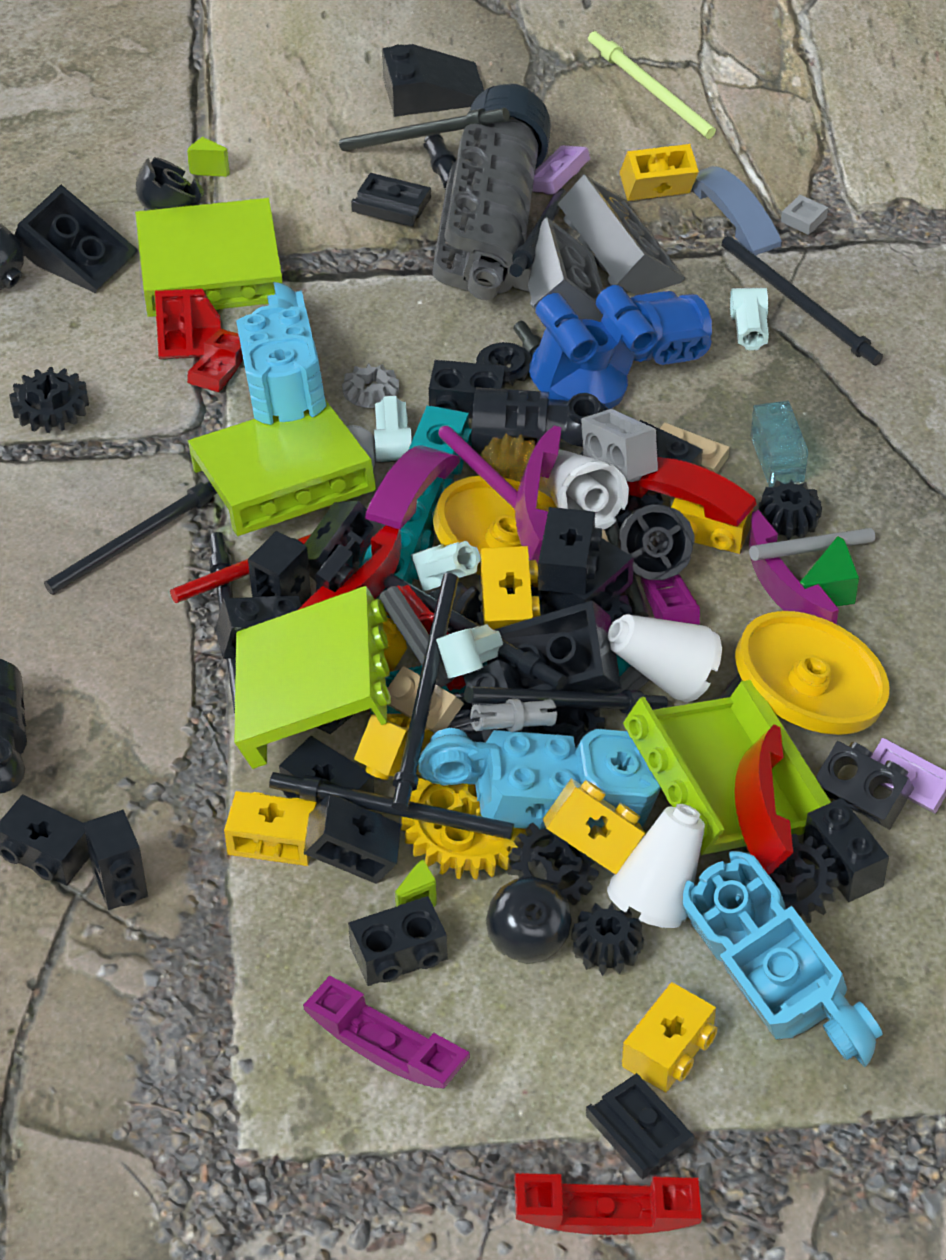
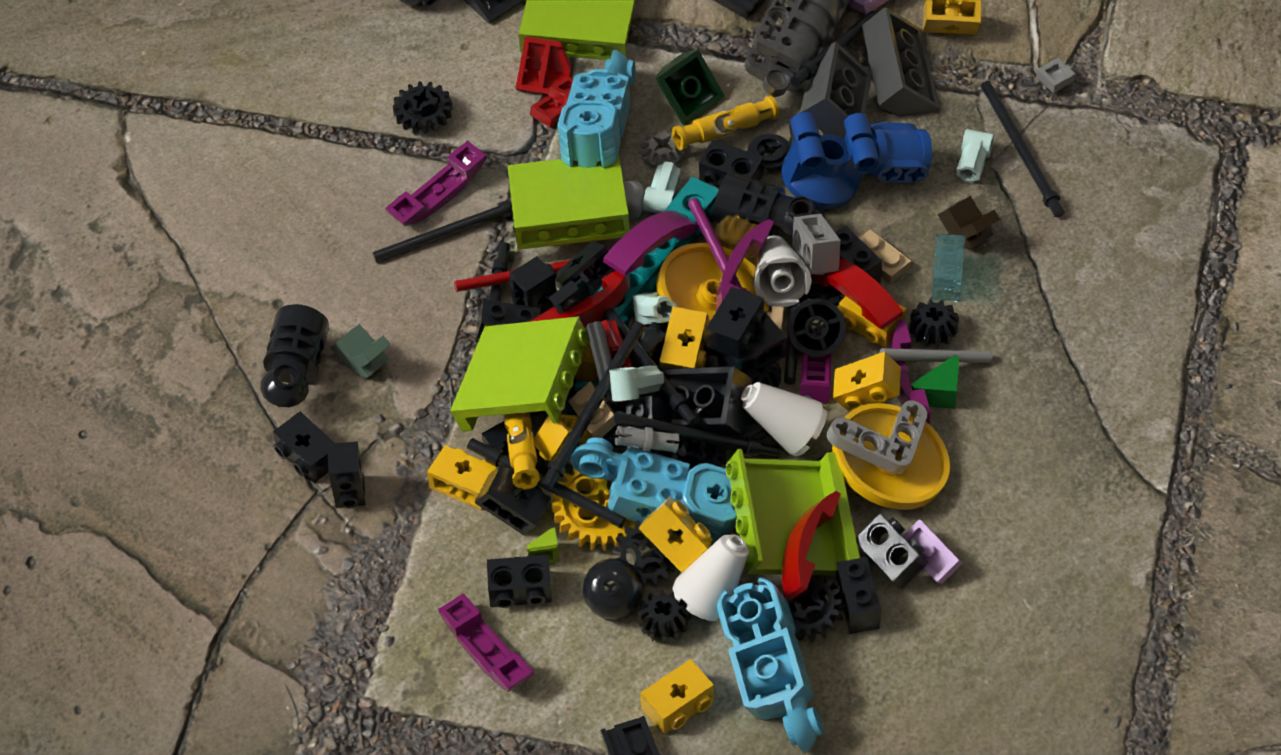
camera: 20 degrees right, 5 degrees up
(76, 705) = (361, 352): none -> sand green brick
(107, 487) = (441, 188): none -> magenta slope
(348, 769) = (521, 450): none -> yellow piece
(378, 307) = (689, 85): none -> dark green slope
(423, 347) = (741, 117): none -> yellow piece
(740, 206) = (1005, 58): sand blue slope -> none
(745, 592) = (867, 381): none -> yellow brick
(764, 655) = (885, 447): none -> light grey beam
(775, 383) = (967, 220): none -> dark brown brick

